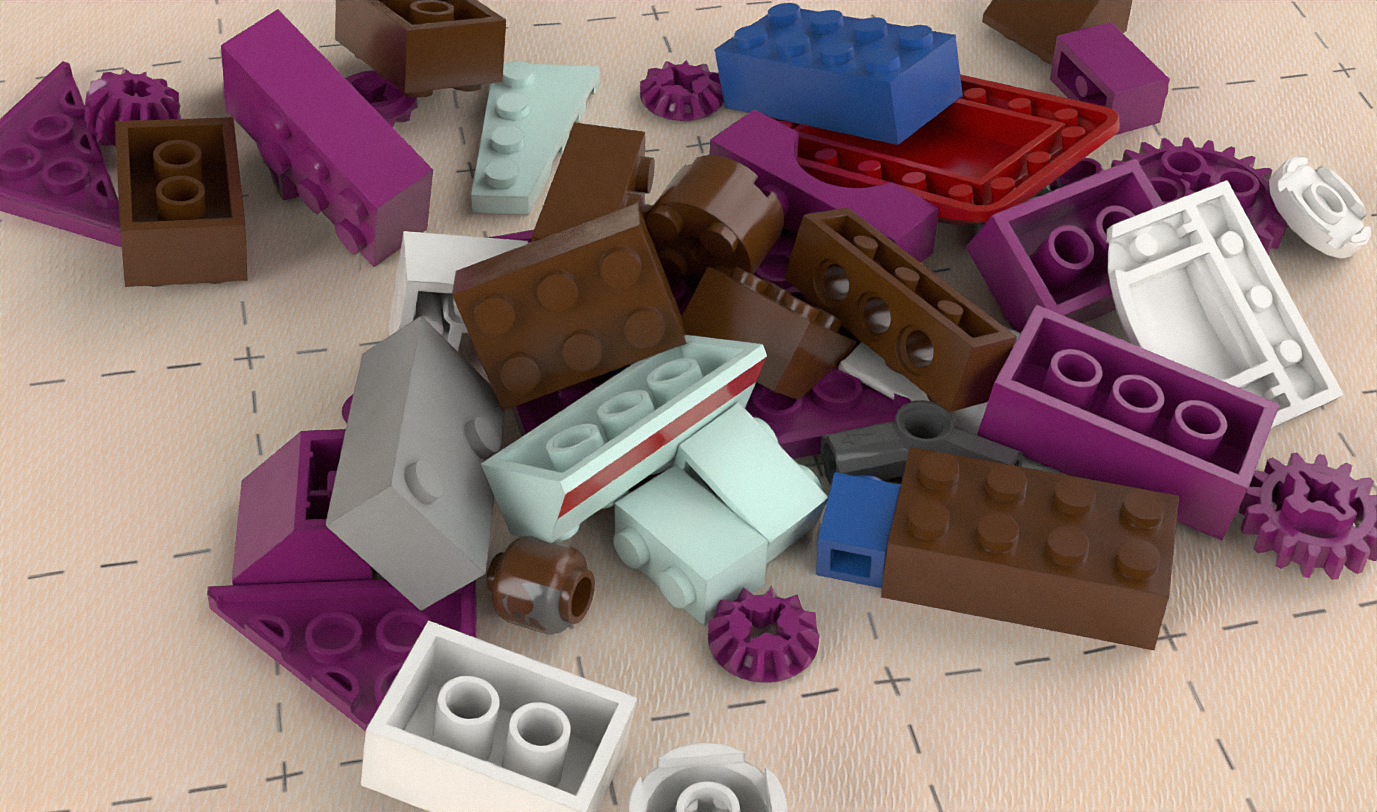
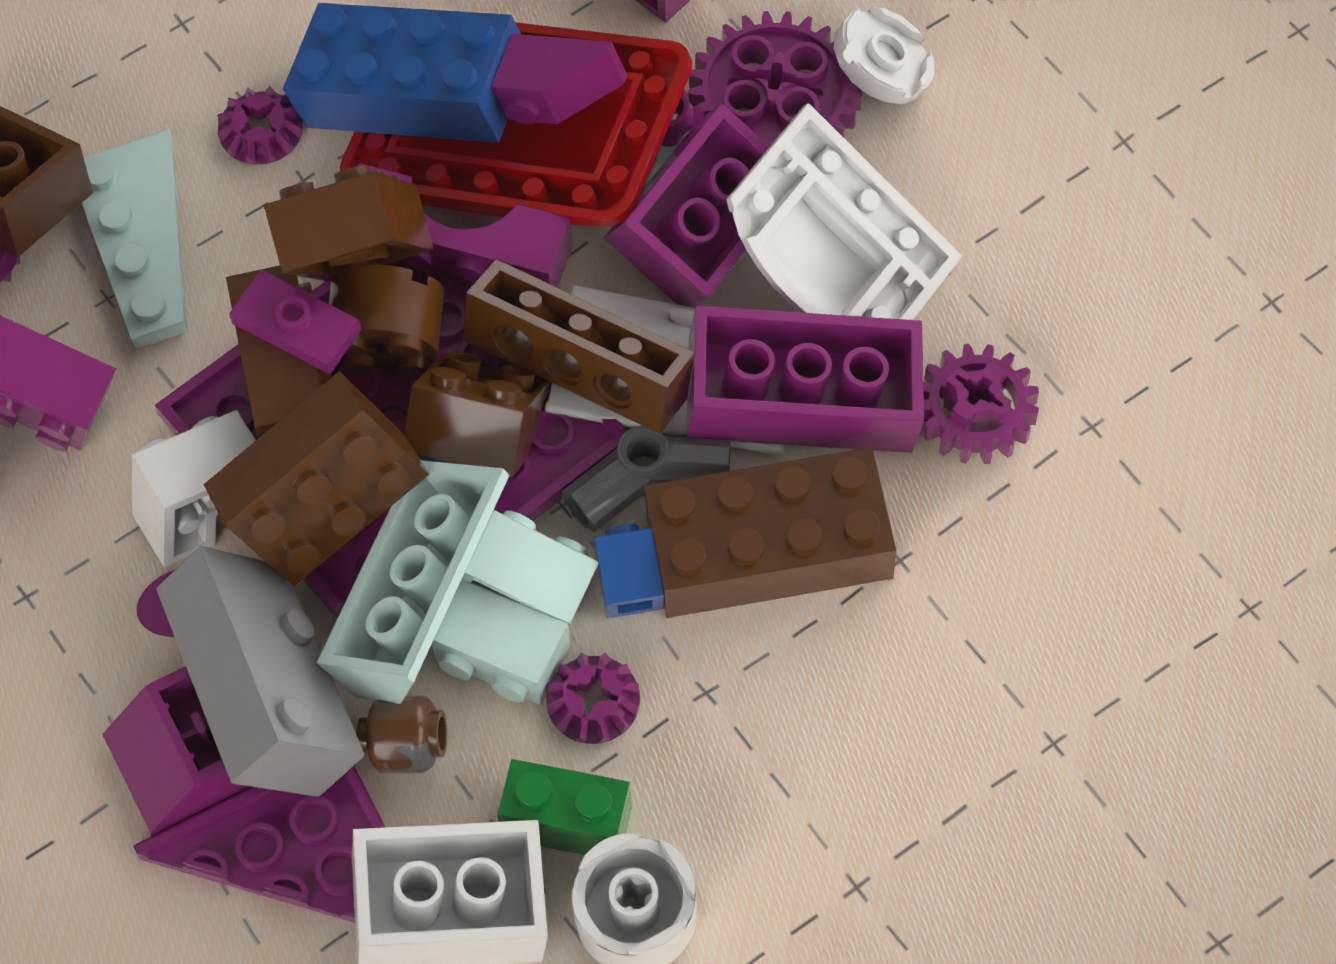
camera: 20 degrees left, 20 degrees up
(619, 166) = (295, 321): none -> magenta plate
(679, 704) = (570, 806): none -> green brick
(712, 99) = (347, 224): none -> reddish brown brick
(977, 98) = (554, 77): none -> magenta slope

